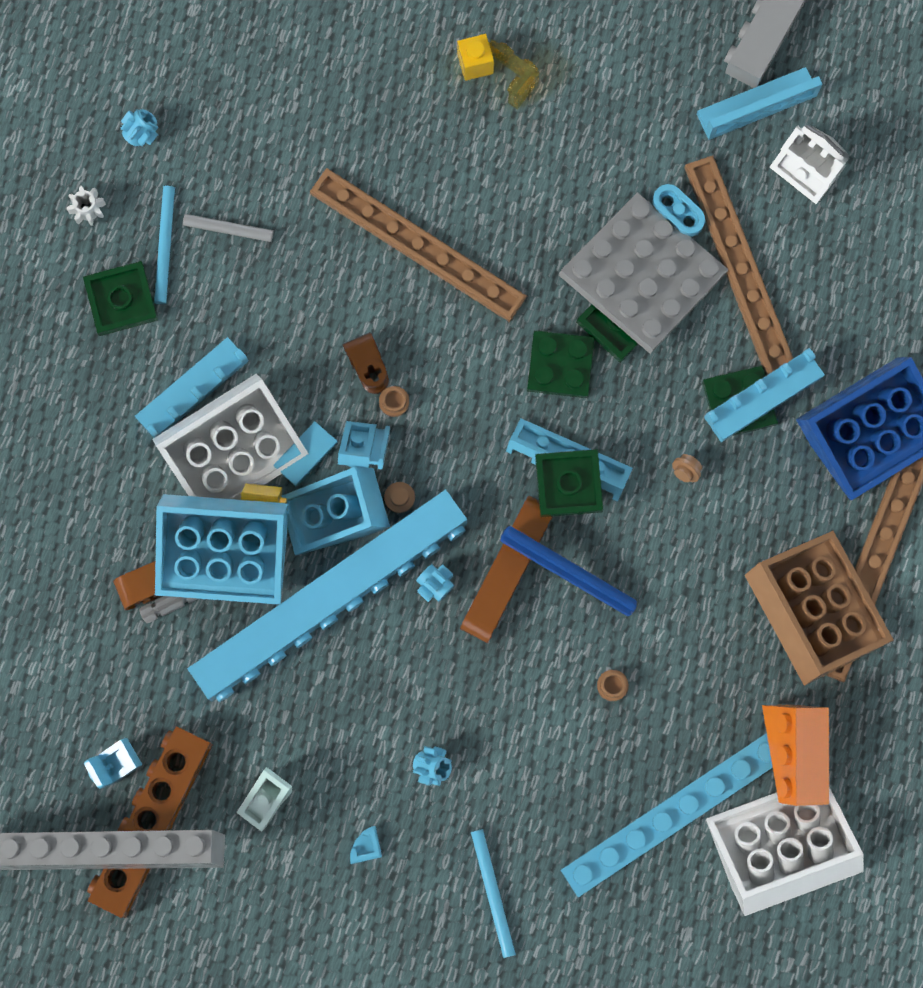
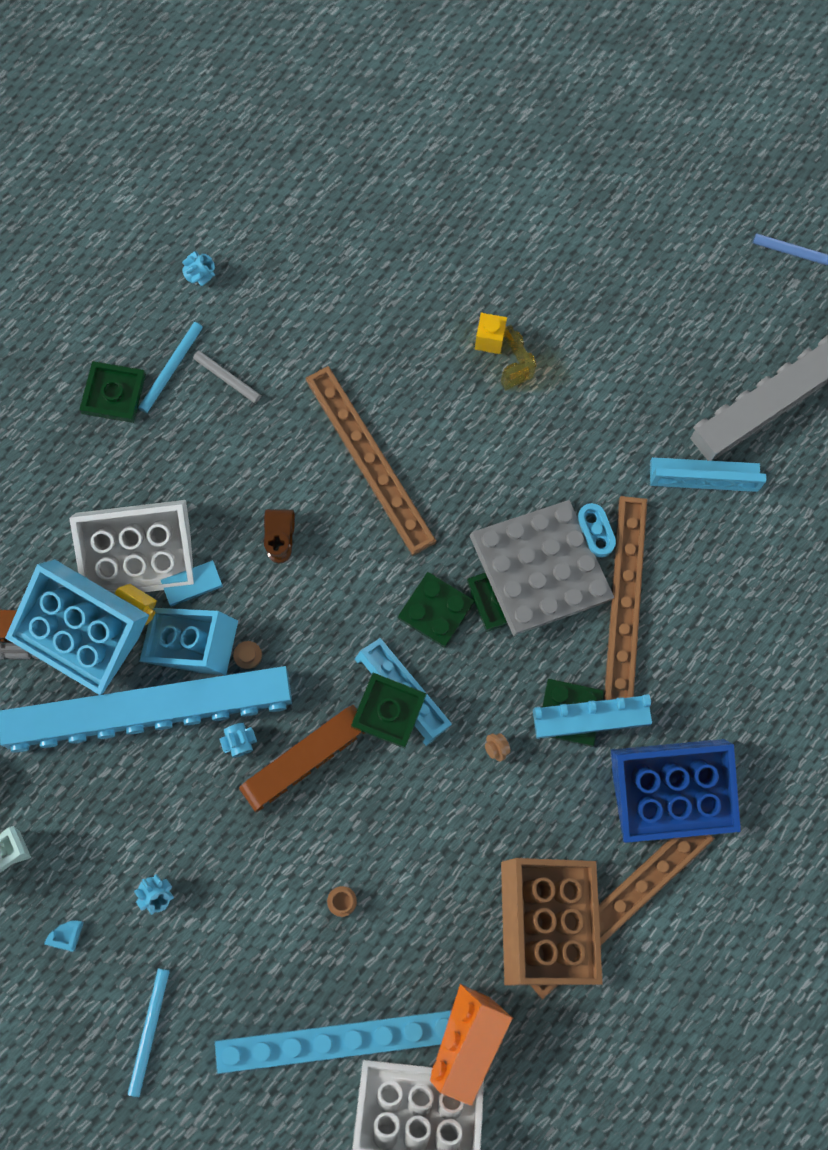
camera: 25 degrees right, 5 degrees down
(86, 213) = (128, 315): white gear -> none
(192, 388) = (130, 488): medium azure hinge -> none
(363, 445) = (238, 598): medium azure plate -> none
(394, 401) = (284, 575): medium nougat plate -> none
(568, 571) = (352, 785): blue axle -> none
(810, 161) = (726, 540): white piece -> none

